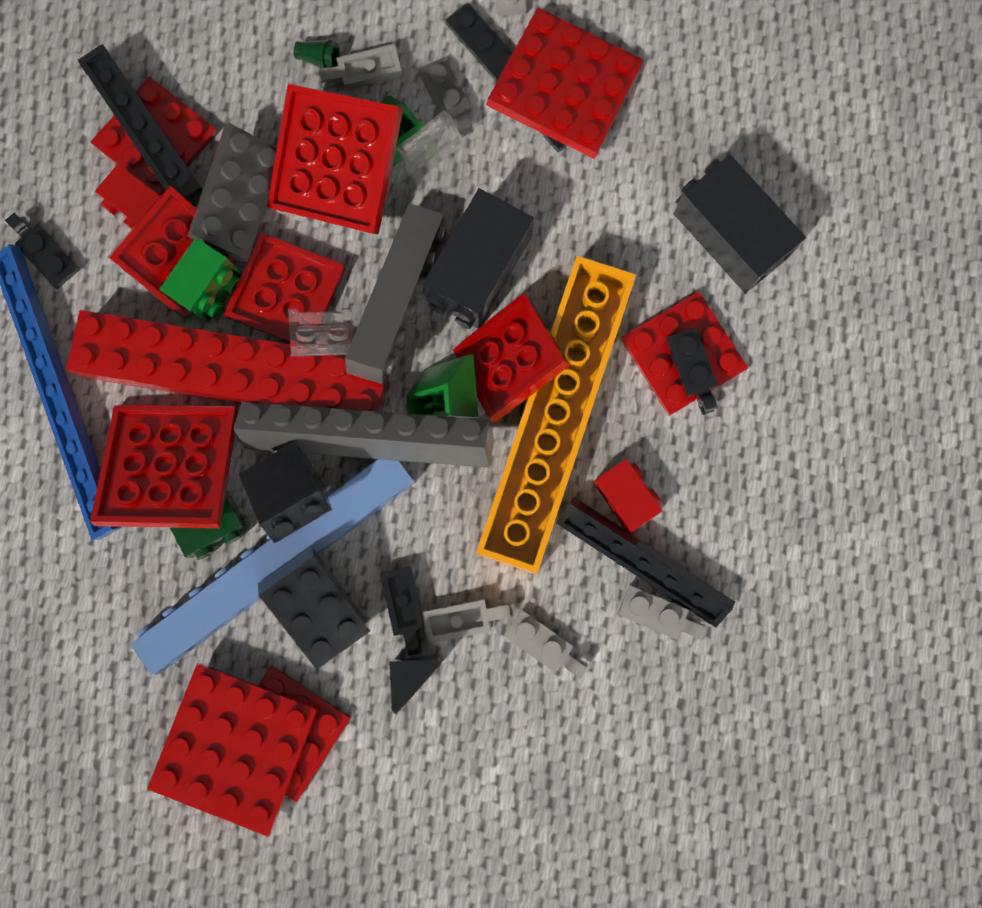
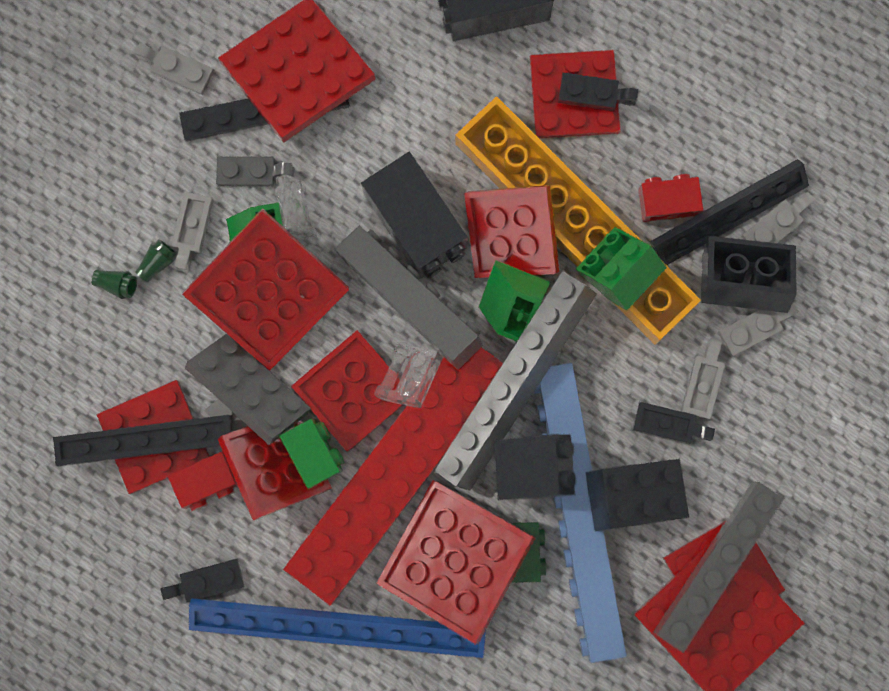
camera: 60 degrees left, 0 degrees up
(275, 720) = (718, 565): none -> dark grey brick
(278, 30) = (118, 283): none -> dark green cone
(408, 676) = (733, 444): black slope -> none
(525, 477) = (621, 267): none -> green slope
(590, 609) = (748, 274): none -> black brick

